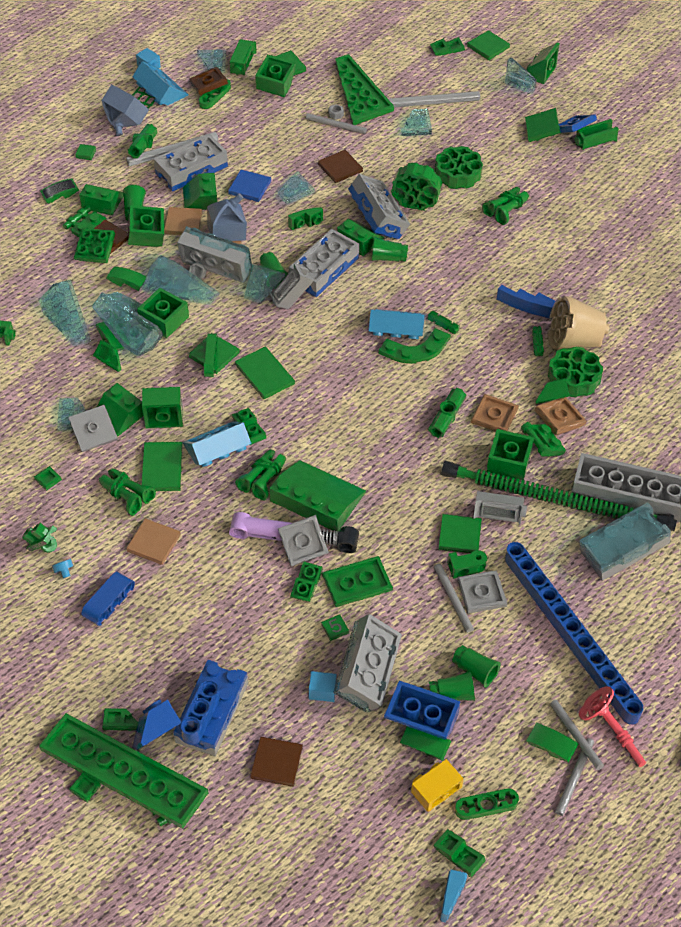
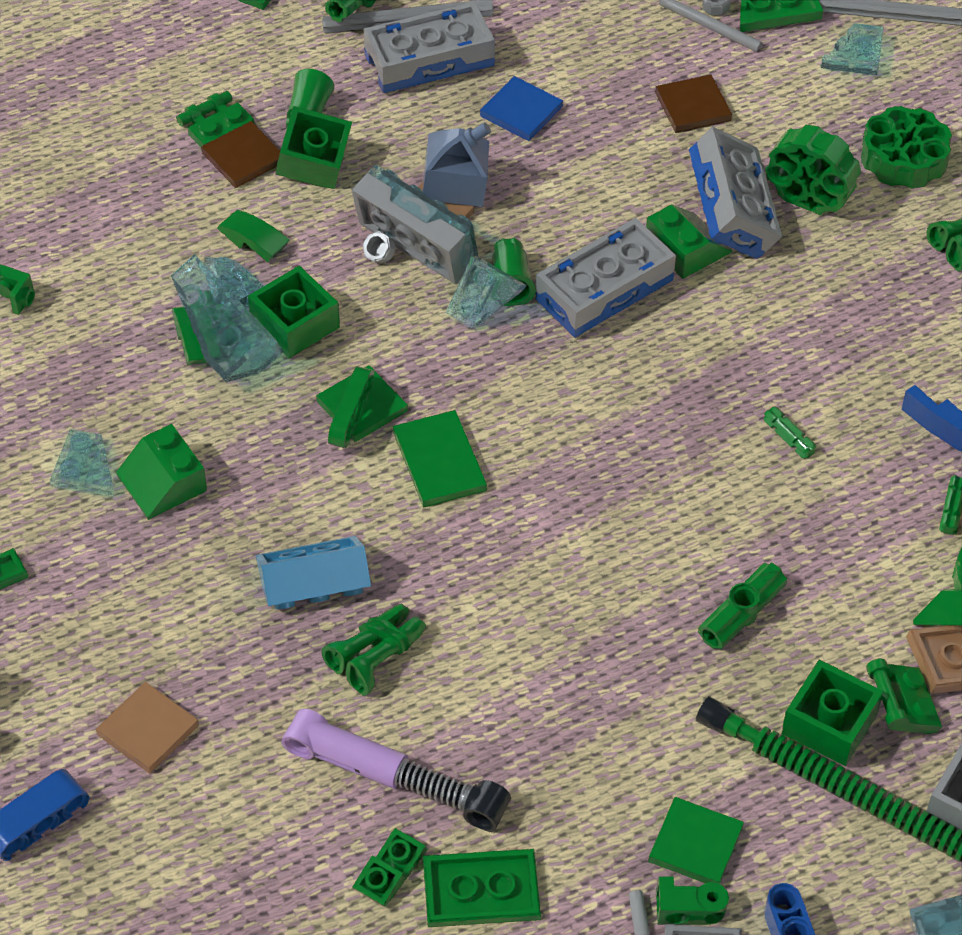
camera: 15 degrees right, 0 degrees up
(62, 188) = (198, 51): slope -> none
(64, 312) = (128, 273): clear light blue wedge -> none
(93, 428) = (107, 496): light grey plate -> none
(94, 245) = (217, 165): green tile -> none
(100, 199) = (254, 82): green slope -> none
(108, 354) = (177, 369): green tile -> none
(118, 489) = (115, 616): green piece -> none
(162, 407) = (236, 485): green brick -> none
(162, 465) = (206, 592): green tile -> none
(178, 281) = (339, 261): clear light blue wedge -> none
(179, 218) = (385, 147): medium nougat tile -> none
(200, 191) = (430, 104): green slope -> none
(253, 429) = (381, 551): green slope -> none
(291, 287) = (531, 312): light grey window -> none
(295, 189) = (600, 130): clear light blue wing -> none
(303, 540) = (404, 789): light grey tile -> none
(309, 216) = (609, 186): green slope -> none
(316, 492) = (458, 707): green slope -> none
(388, 251) = (729, 278): green plant -> none
(396, 323) = (702, 416): dark azure slope -> none
(413, 354) = (718, 481): green plate -> none
(494, 413) = (830, 627): medium nougat tile -> none
(499, 507) = (781, 808): light grey window -> none

